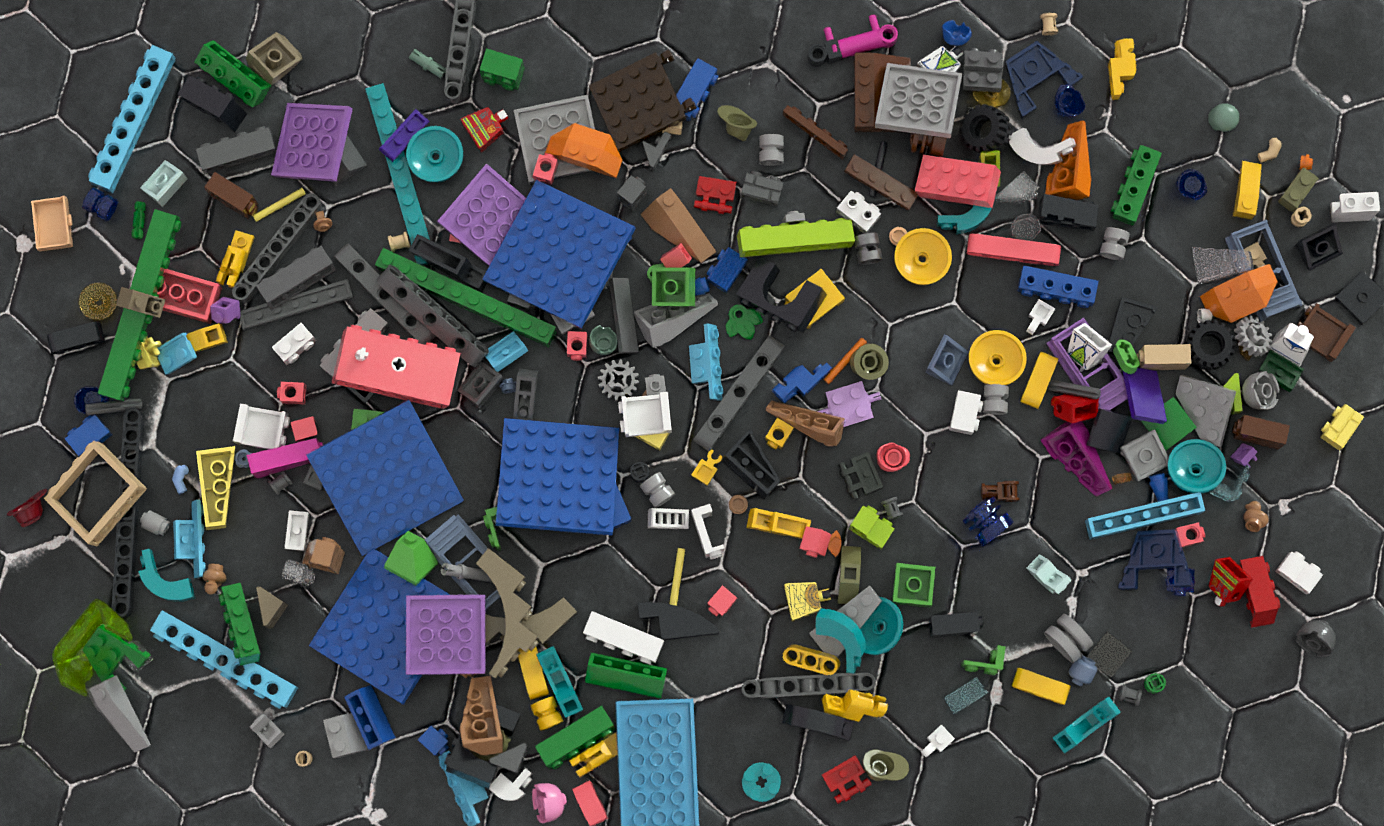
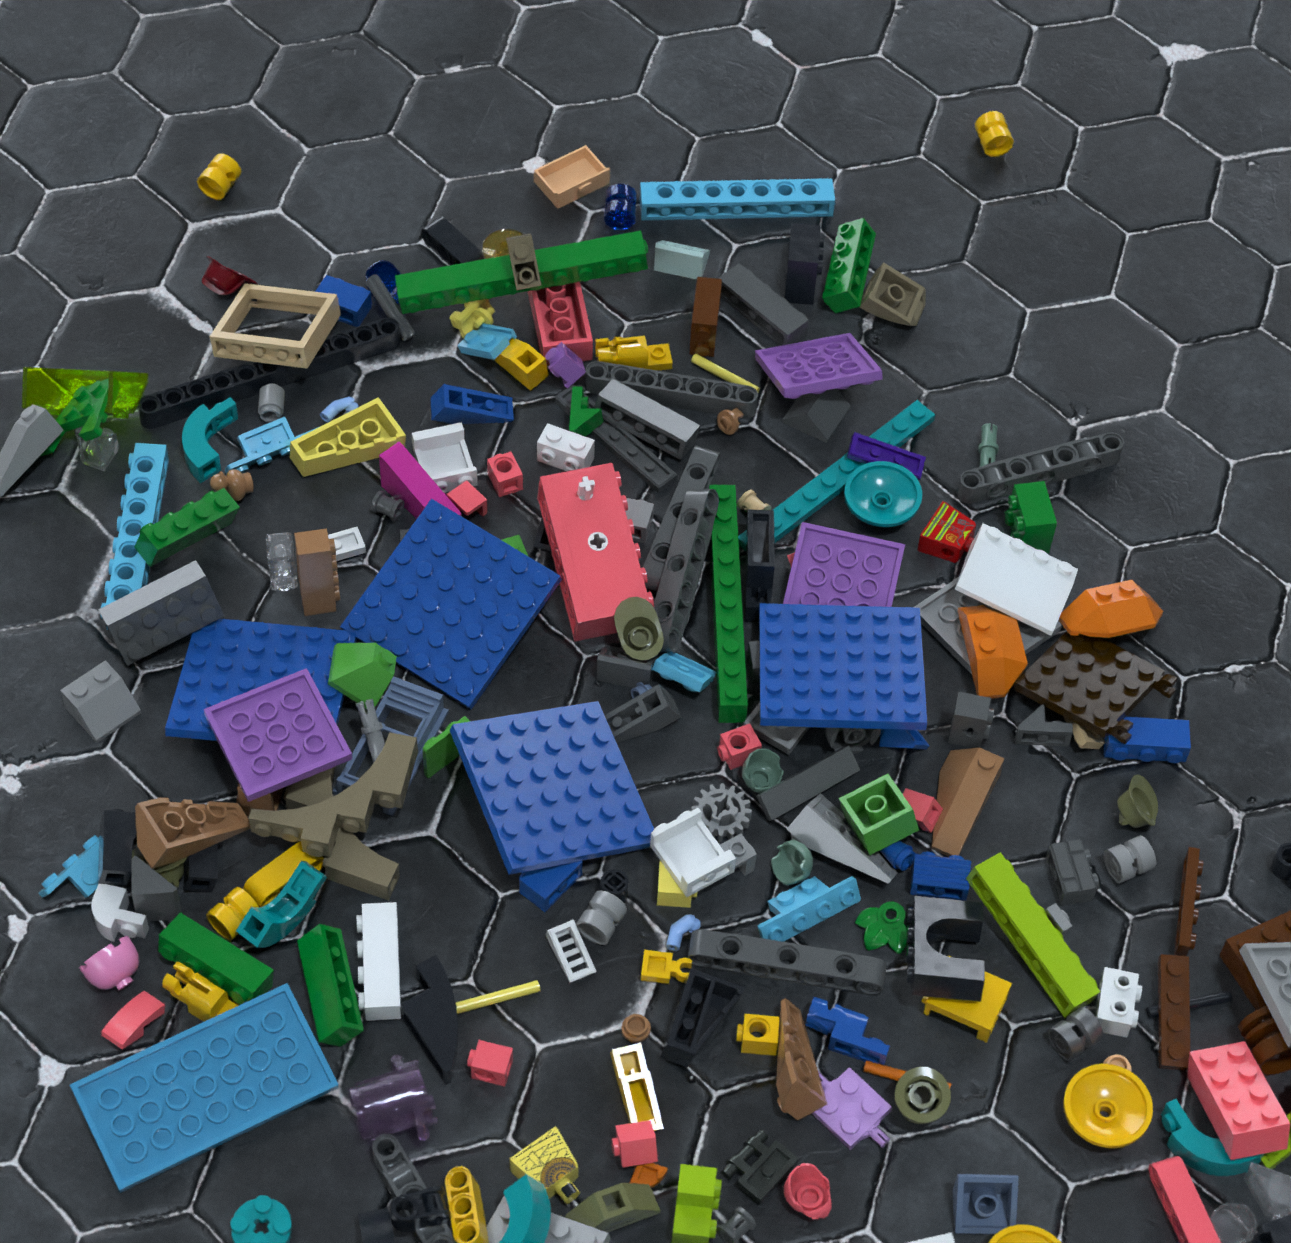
camera: 60 degrees right, 25 degrees down
(225, 389) = (469, 406): none -> blue slope
(267, 730) = (68, 613): light grey bracket -> none
(270, 607) = (223, 550): dark tan slope -> none
(277, 323) = (582, 418): none -> green slope
(300, 758) = (48, 669): tan hinge -> none
(305, 669) = (161, 612): none -> dark grey brick
(369, 717) = (133, 714): blue brick -> none
(435, 740) = (134, 792): blue brick -> none
(470, 368) = (638, 628): none -> olive piece
(542, 176) = (935, 621): coral brick -> none
(546, 107) = (1016, 579): none -> white slope
(598, 58) = (1111, 611): none -> orange wedge
(675, 355) = (792, 862): none -> sand green hair
(684, 445) = (680, 927): none -> light blue arm
(698, 515) = (588, 979): white panel -> none
(715, 189) = (1036, 820): red plate -> none
(724, 671) = (393, 1102): none -> clear purple container
(803, 685) = (422, 1208): none -> black piece

